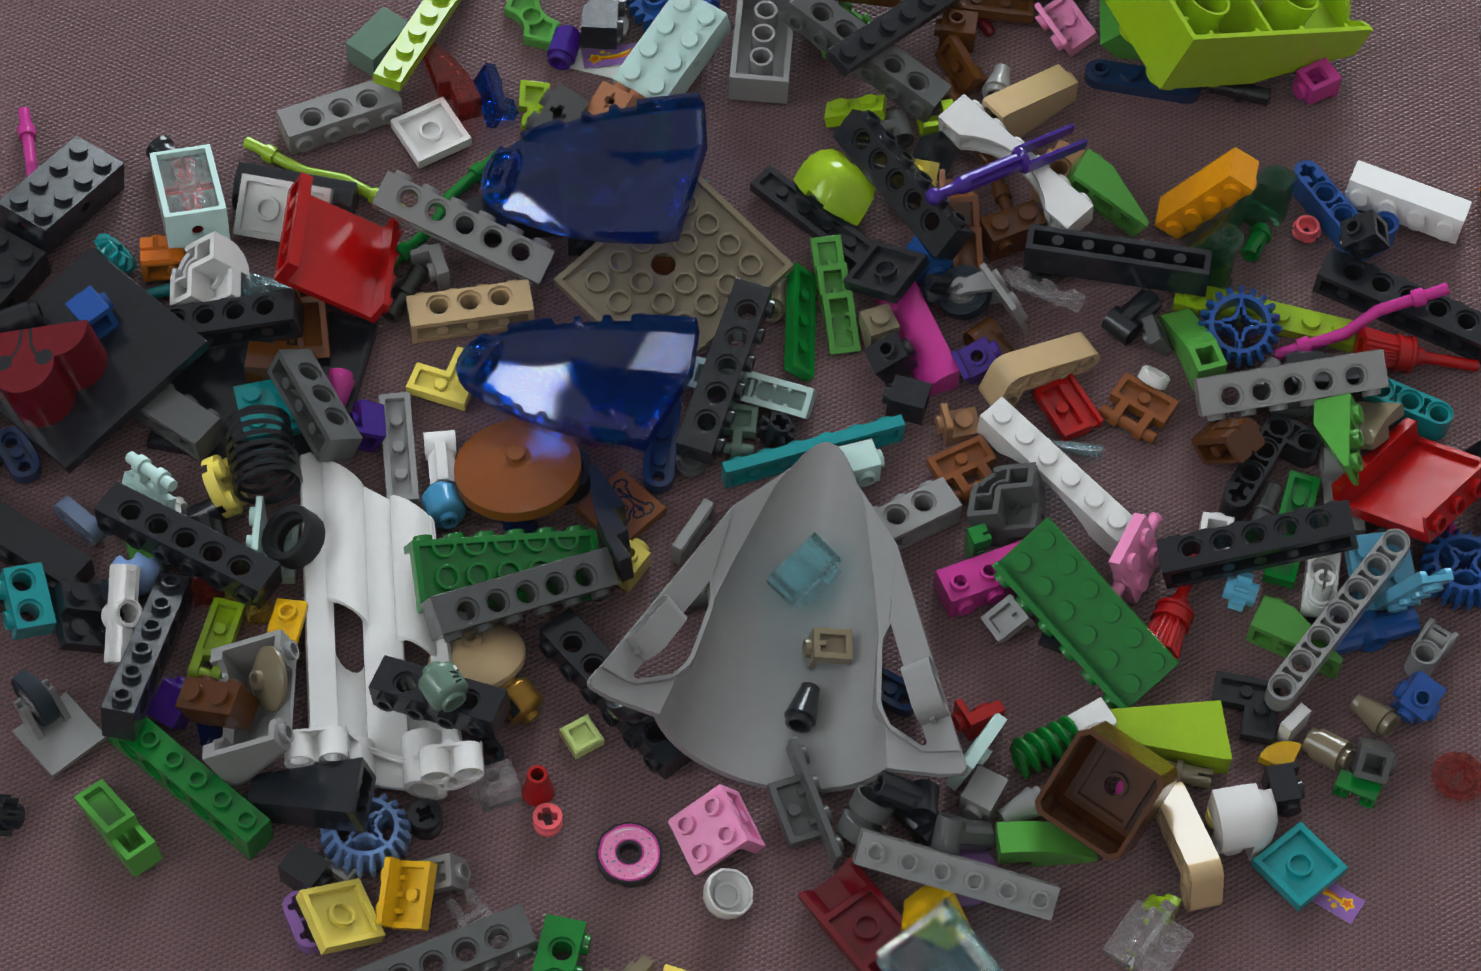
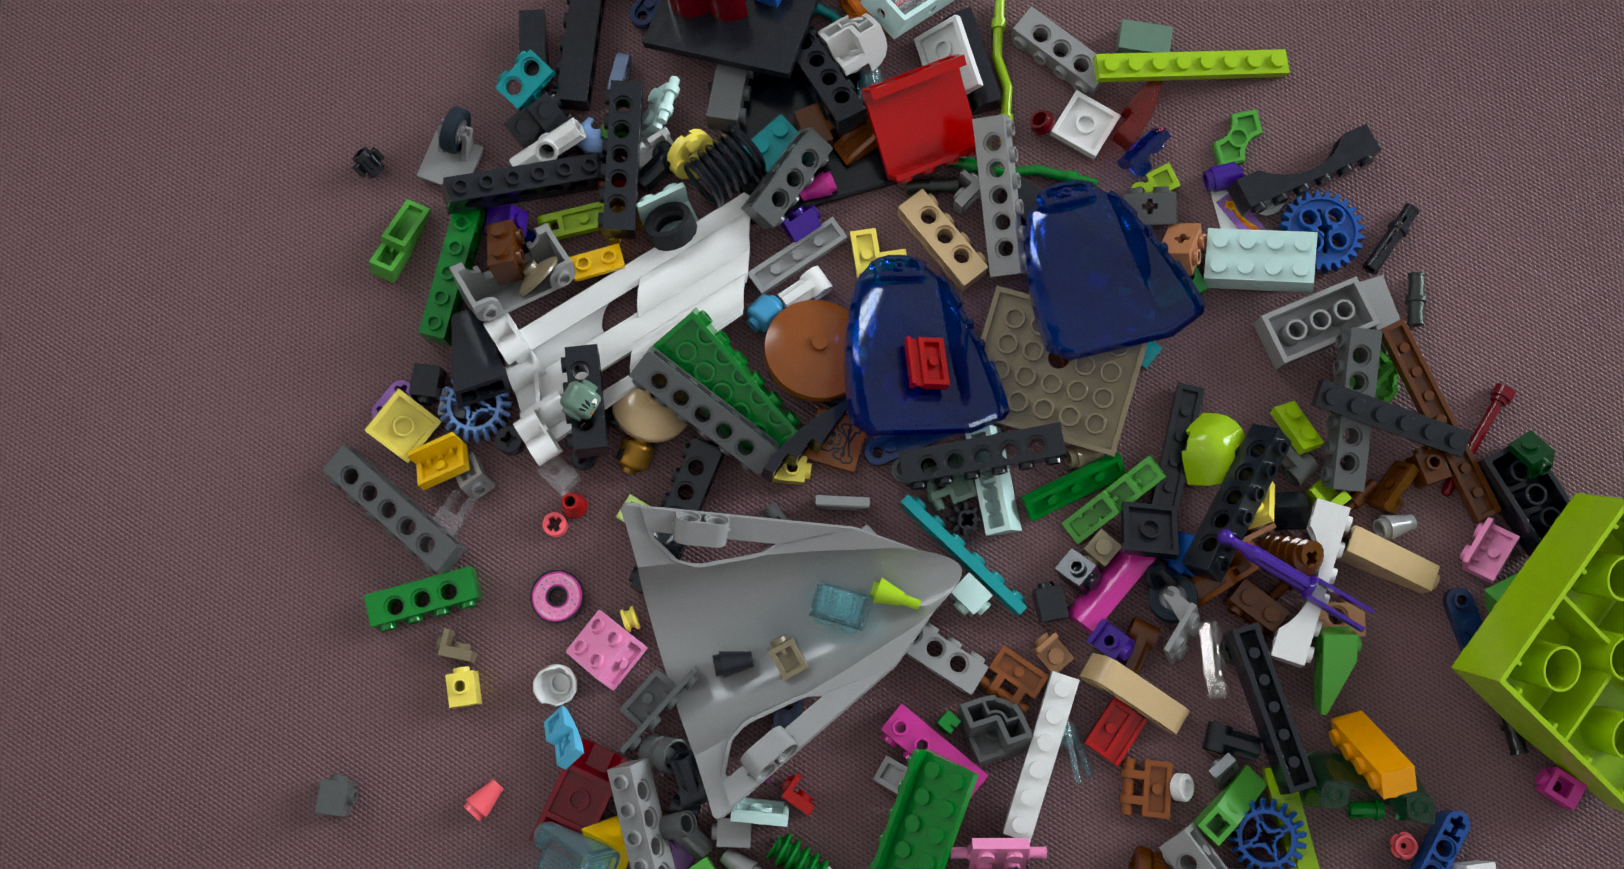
camera: 65 degrees right, 20 degrees up
(398, 161) = (1042, 122): none -> dark red plate
(595, 377) = (926, 363): none -> red plate
(696, 788) = (630, 619): none -> light yellow bush
(790, 909) = (564, 735): none -> medium azure slope
(821, 517) = (888, 594): none -> lime cone
(983, 151) = (1297, 552): none -> reddish brown piece

